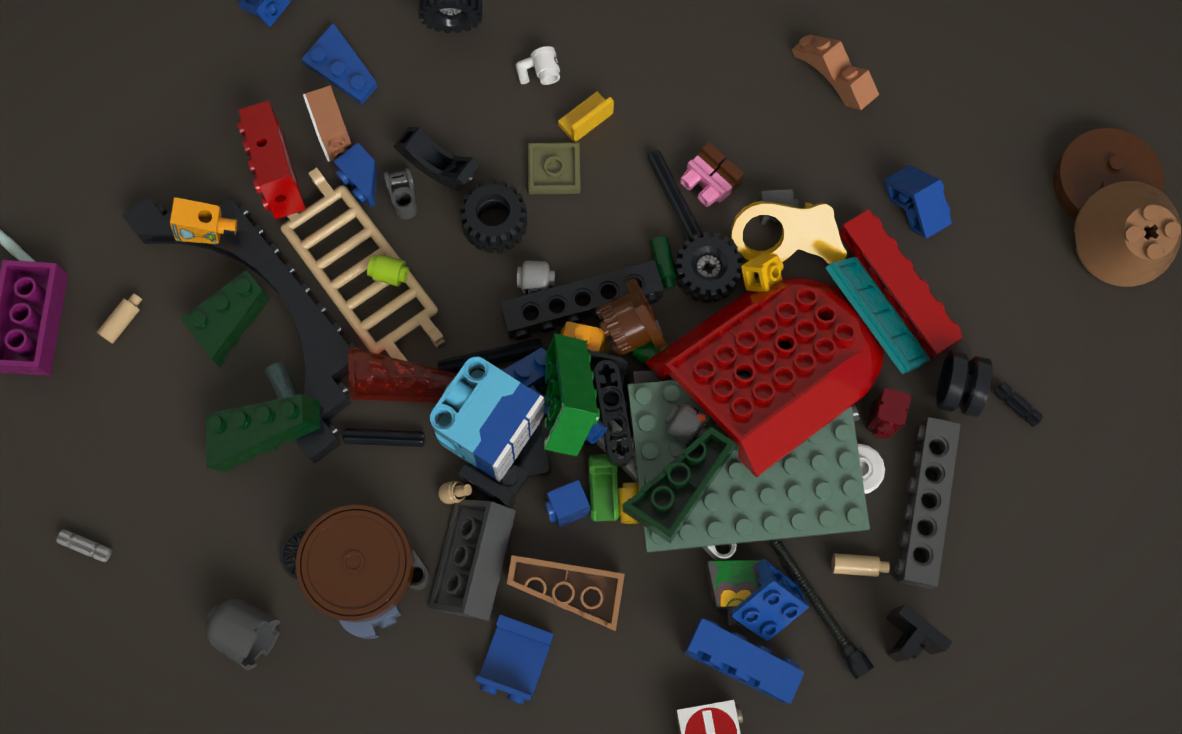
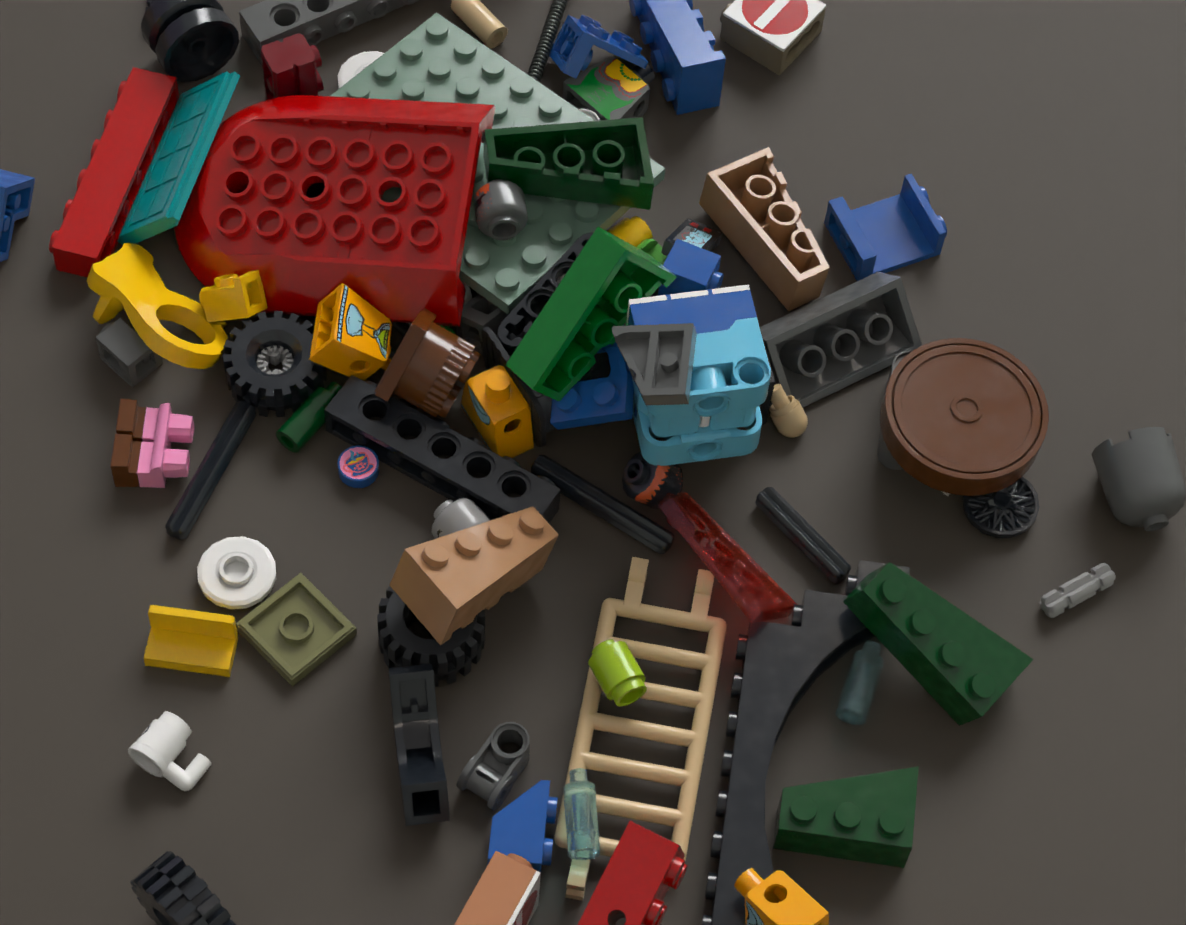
camera: 135 degrees left, 15 degrees down
(227, 544) = (1077, 590): none -> light grey axle
(338, 196) = (581, 816): none -> clear light blue cylinder
(486, 368) = (659, 360): none -> dark grey wing
(490, 234) = (471, 569): none -> medium nougat wedge
(596, 536) = (695, 234): none -> tile
(607, 164) = (236, 572): none -> white wheel
(615, 260) = (358, 466): none -> tile
(685, 306) = (351, 335): none -> light orange torso

